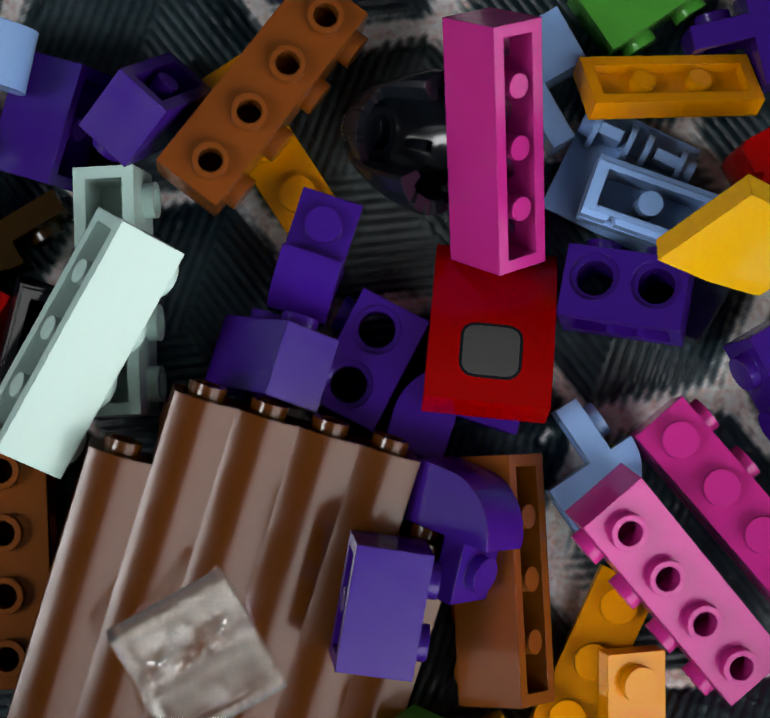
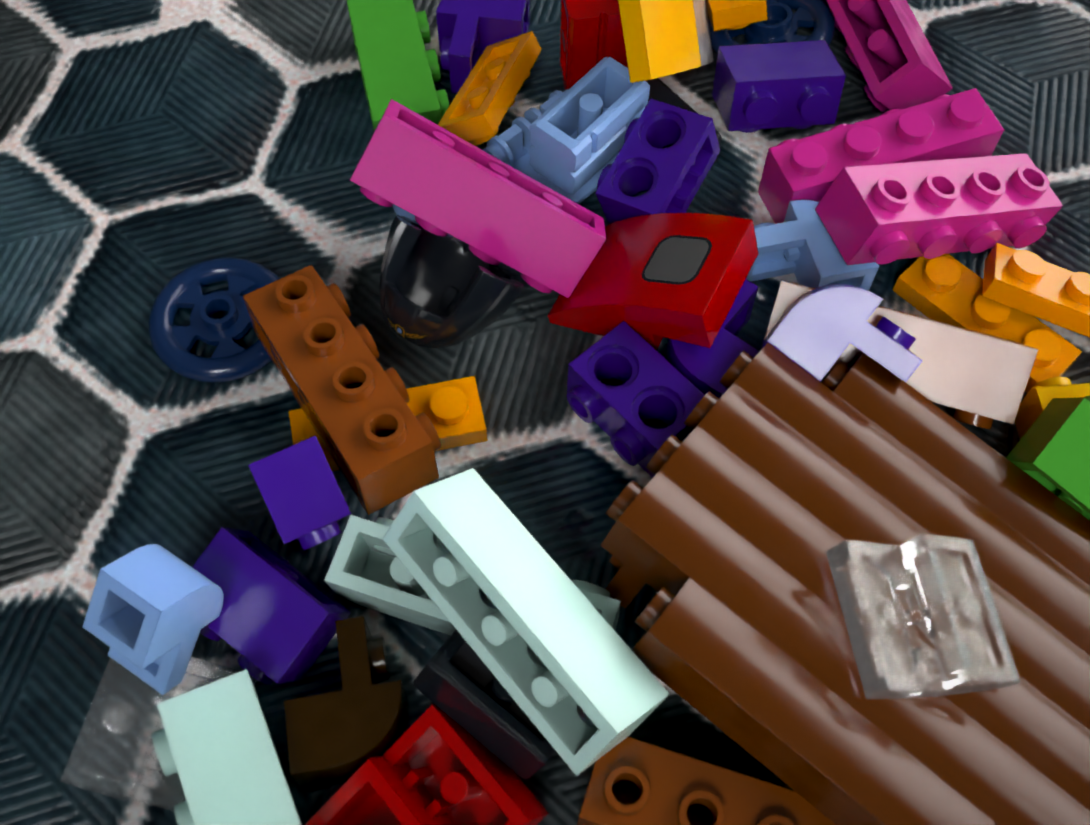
camera: 70 degrees left, 25 degrees down
(273, 358) = (606, 449): dark purple brick -> none
(314, 256) = (532, 403): dark purple brick -> none
(383, 606) = (911, 414): dark purple brick -> none

